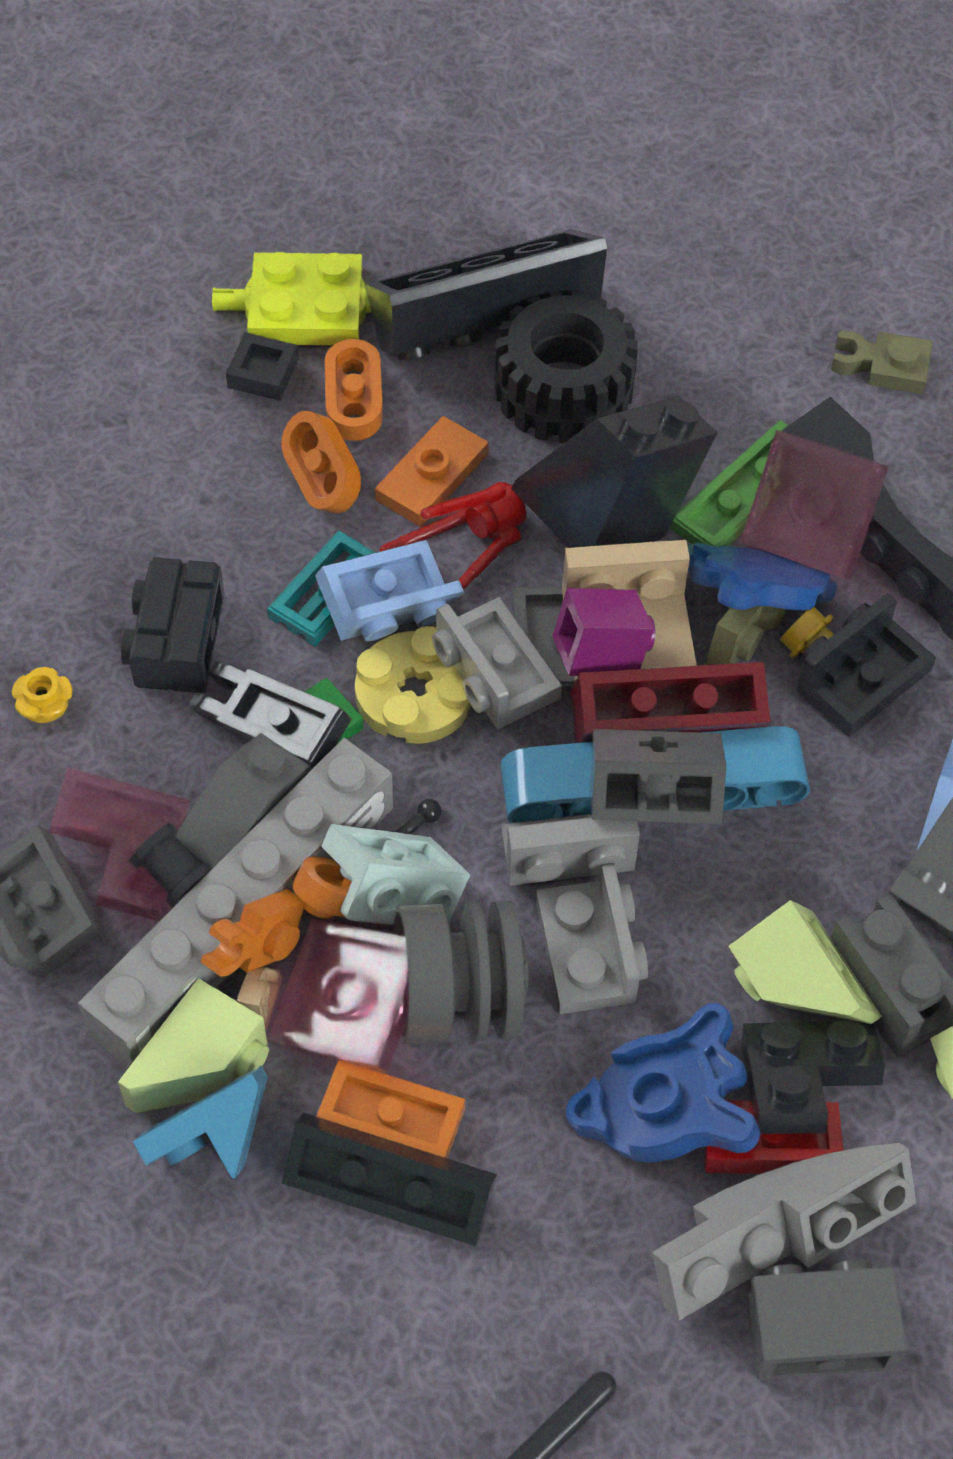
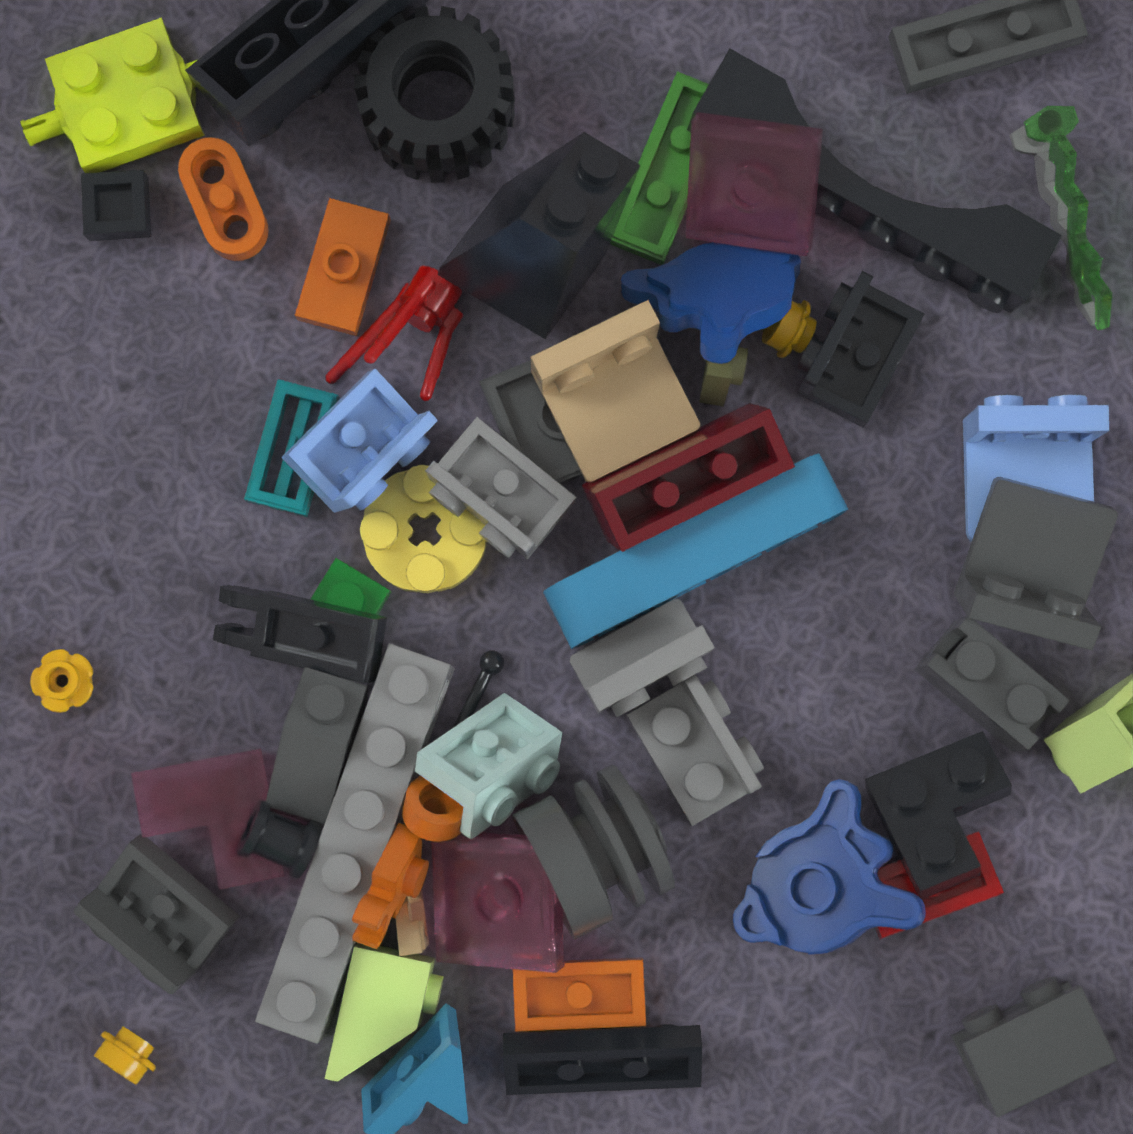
camera: 20 degrees left, 25 degrees up
(175, 625) = (160, 557): black brick -> none
(321, 462) = (227, 306): orange plate -> none
(603, 630) = (601, 435): magenta brick -> none
(657, 776) = (713, 585): dark grey brick -> none
(790, 1210) = (982, 949): light grey slope -> none
(799, 967) = (909, 717): yellowish green slope -> none

